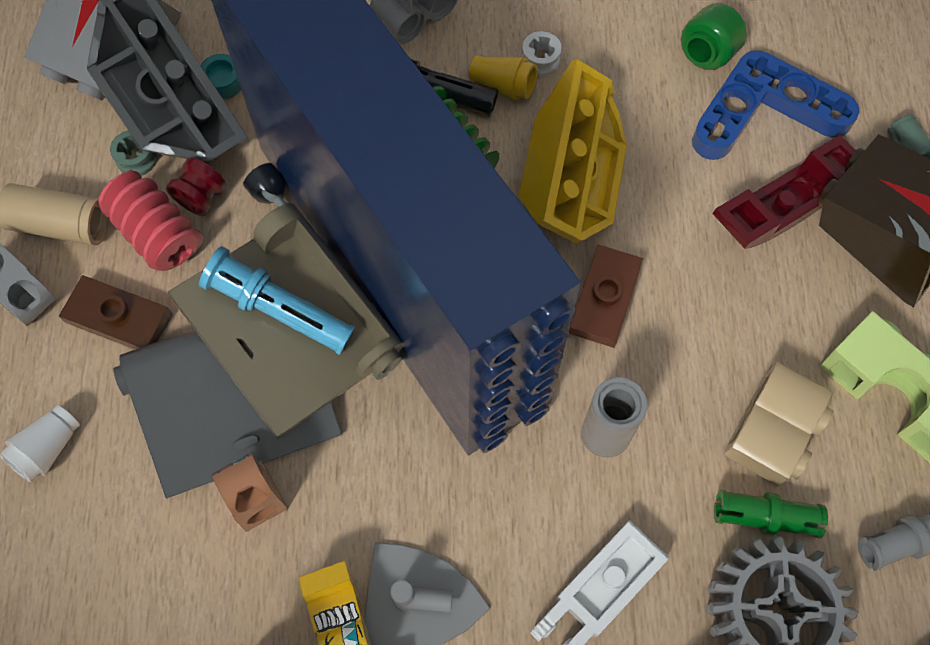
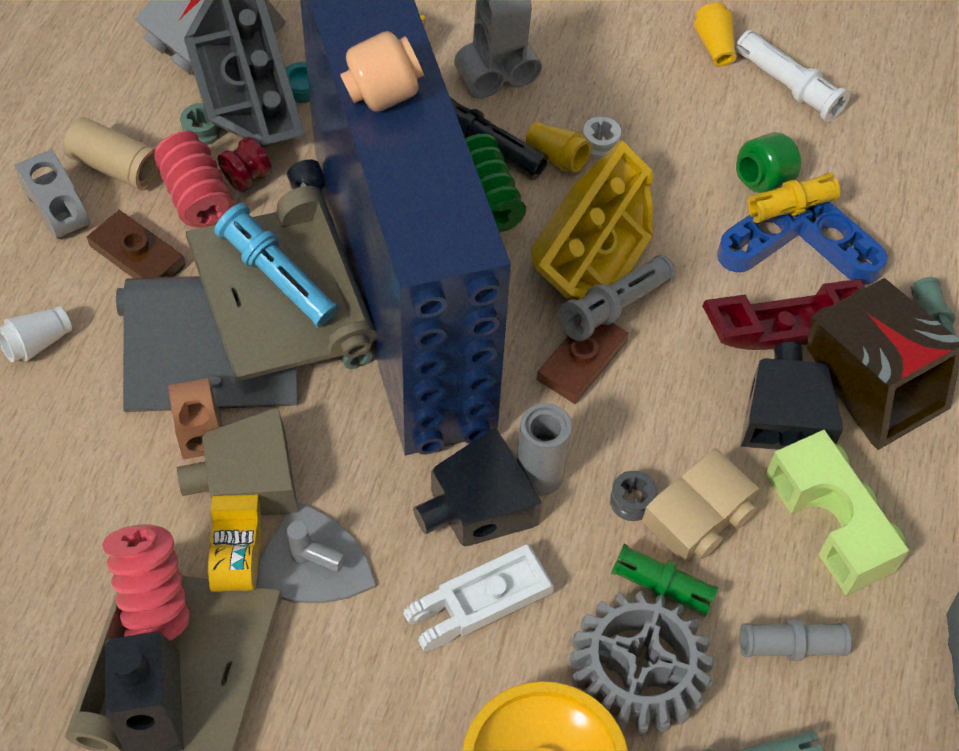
camera: 15 degrees right, 10 degrees down
(316, 526) = (245, 460): none -> dark tan torso
(357, 87) = (382, 71): none -> light nougat head
(562, 480) = (480, 493): none -> black torso
(613, 237) = (605, 302): none -> light grey pin
(721, 426) = (632, 480): none -> dark grey bush
(753, 69) = (793, 197): none -> yellow pin
(823, 287) = (790, 401): none -> black torso

